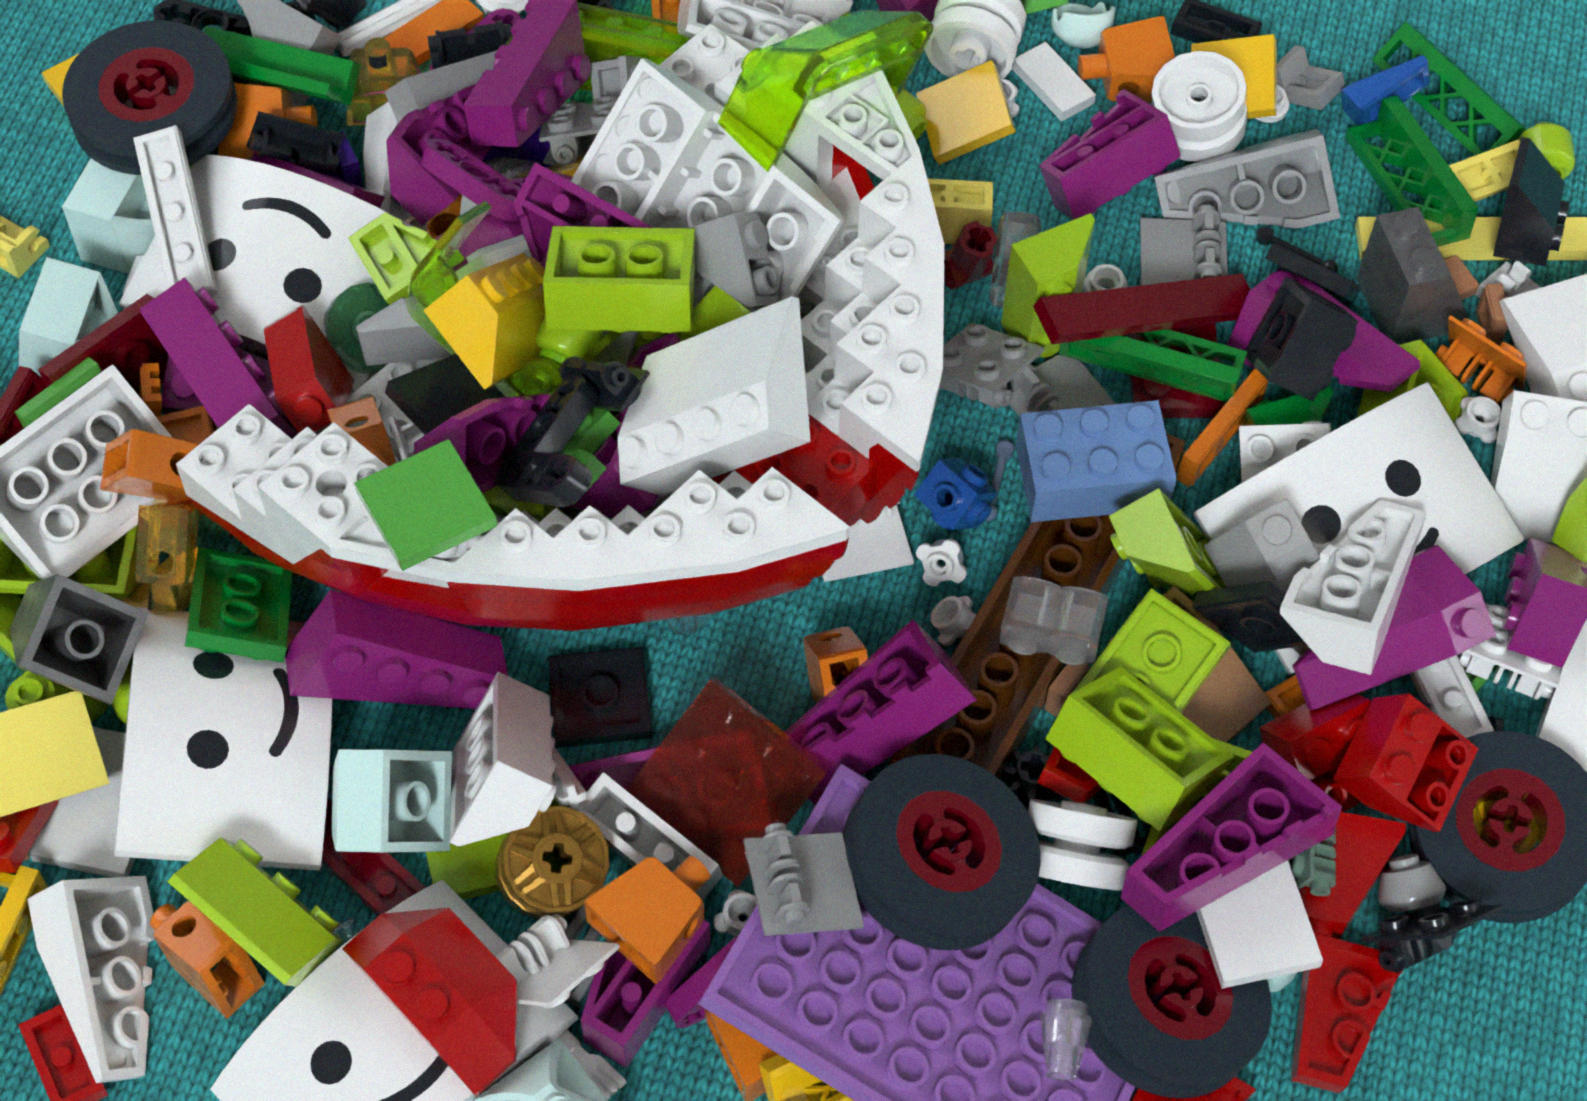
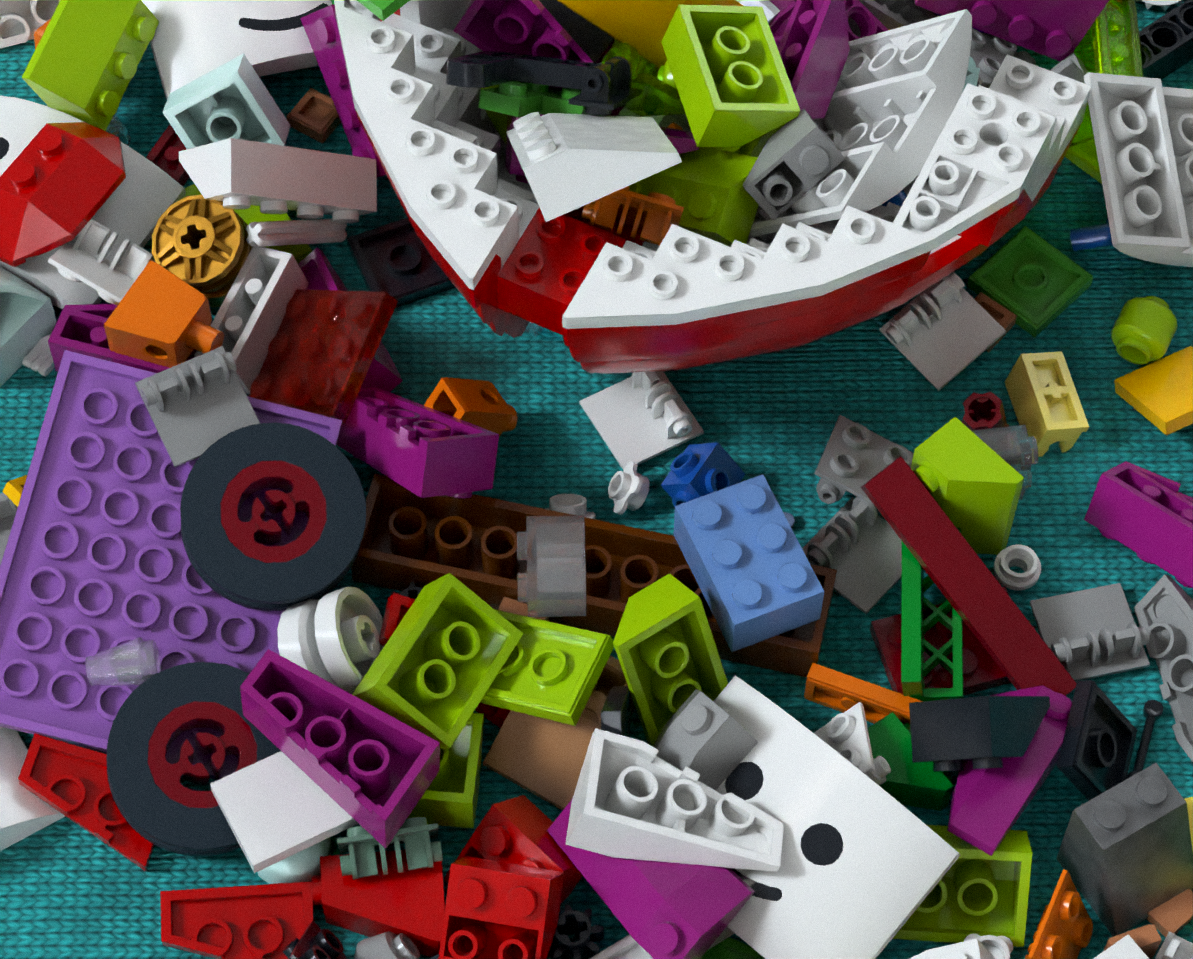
camera: 75 degrees right, 0 degrees up
(378, 732) = (314, 116): none -> nougat tile
(790, 73) = (1007, 140): clear neon green windscreen -> none

